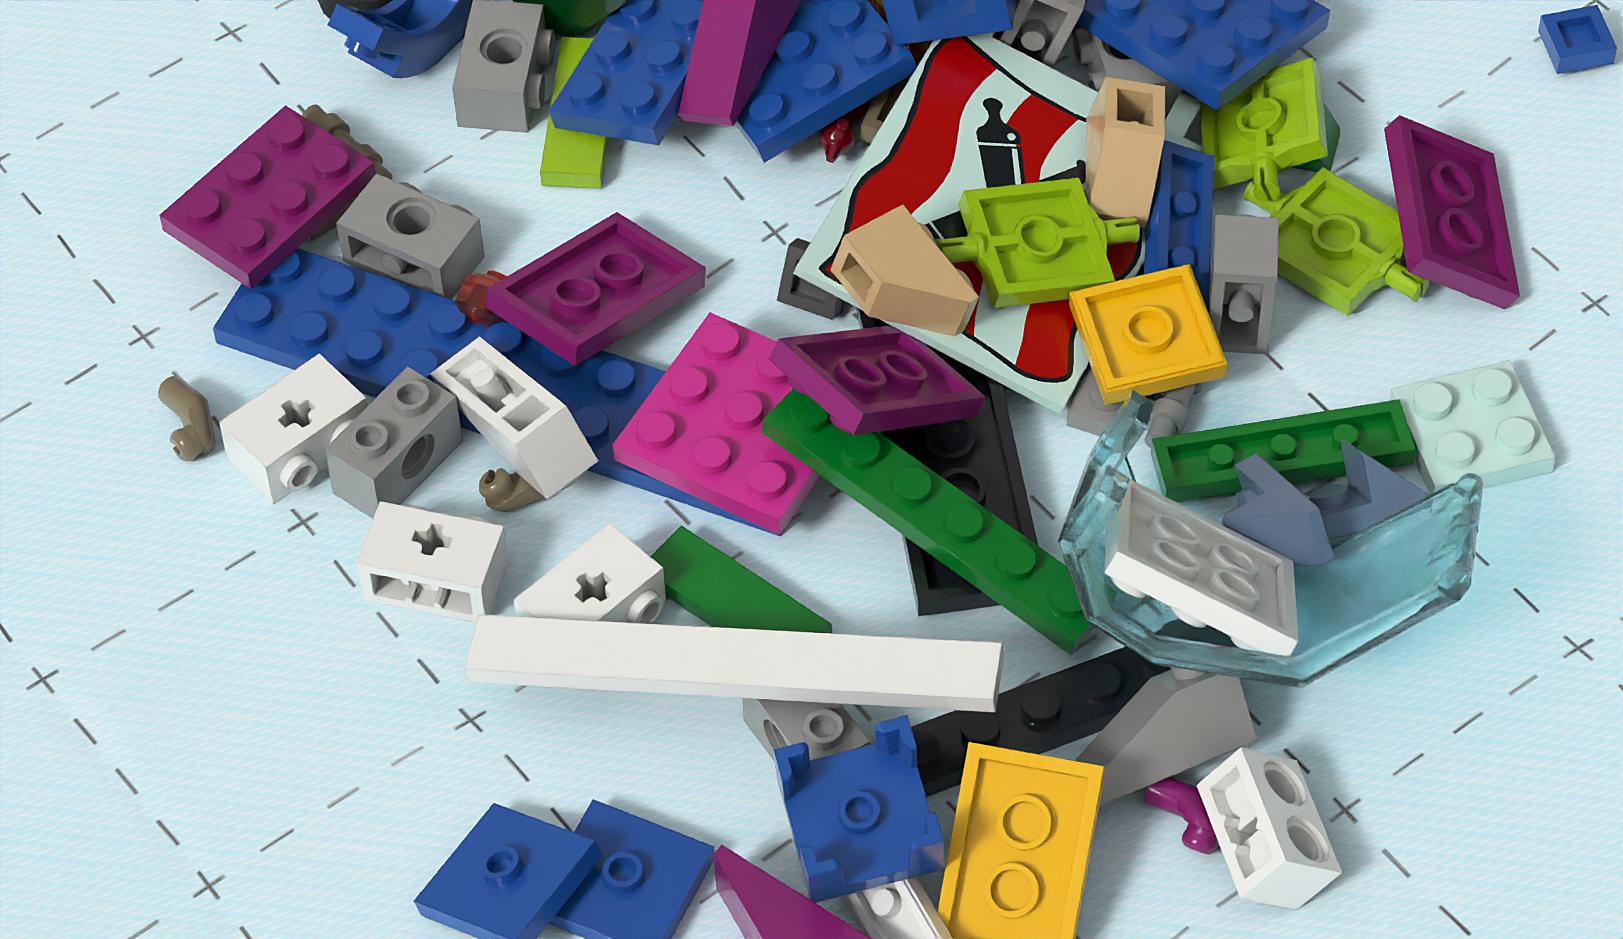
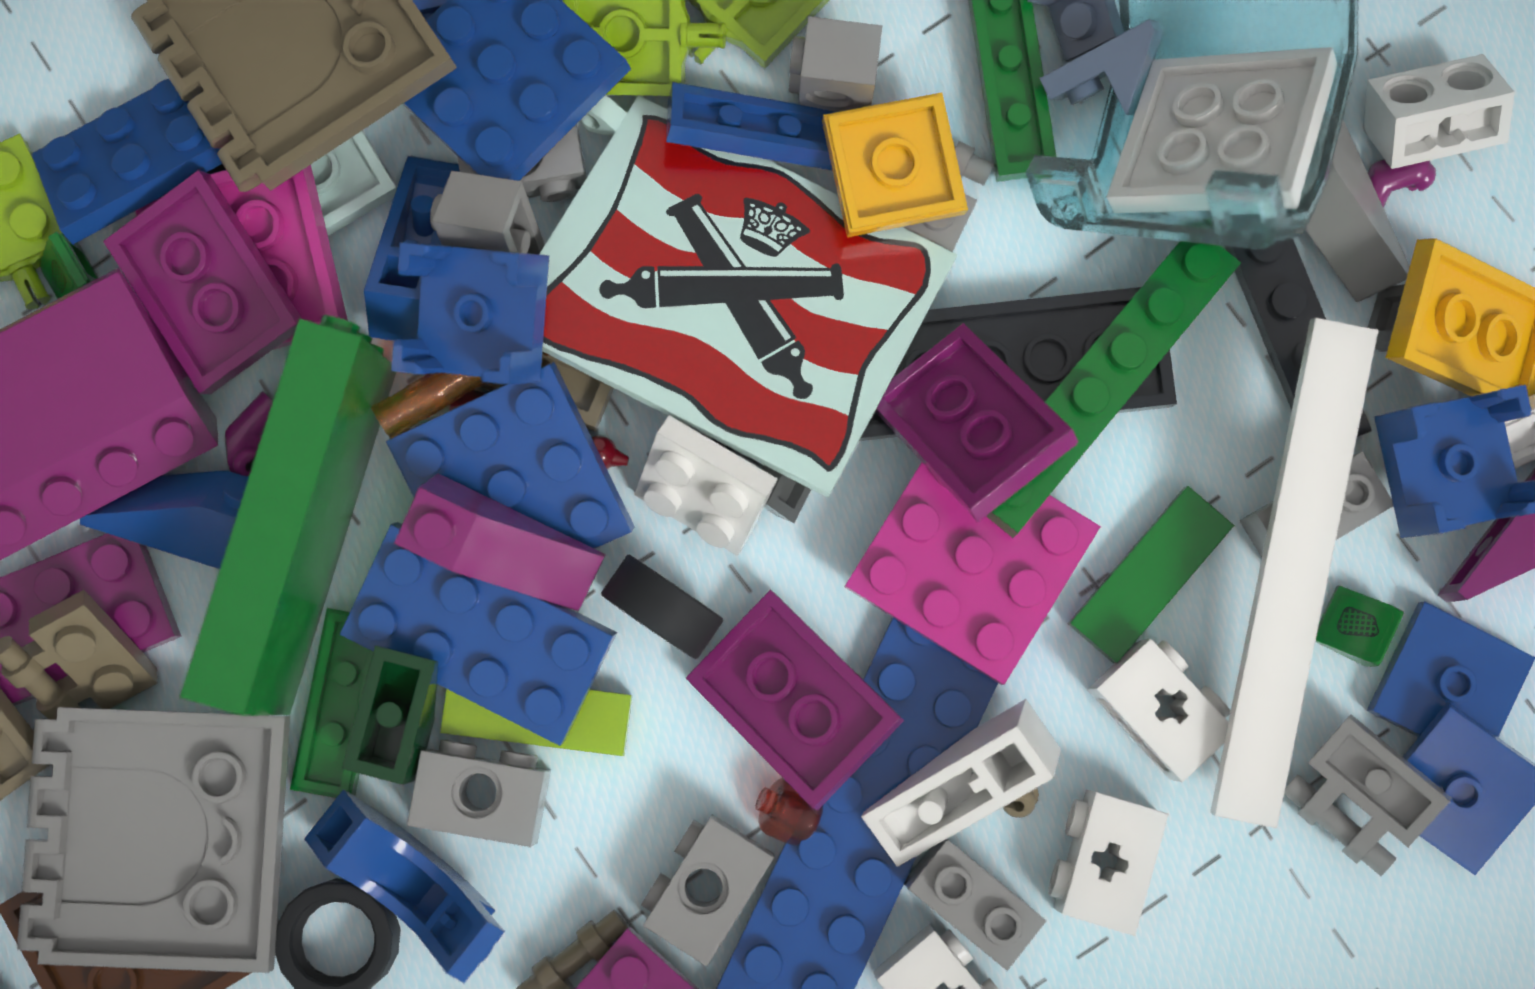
camera: 90 degrees left, 30 degrees up
(502, 779) = (1379, 783): none -> light grey plate
(683, 791) = (1358, 626): none -> green slope
(684, 175) = (662, 607): none -> black tyre
(801, 196) = (703, 486): none -> white plate
(903, 275) = (850, 389): tan slope -> none
(1036, 241) = (790, 259): lime plate -> none
(1124, 148) = (685, 163): tan slope -> none

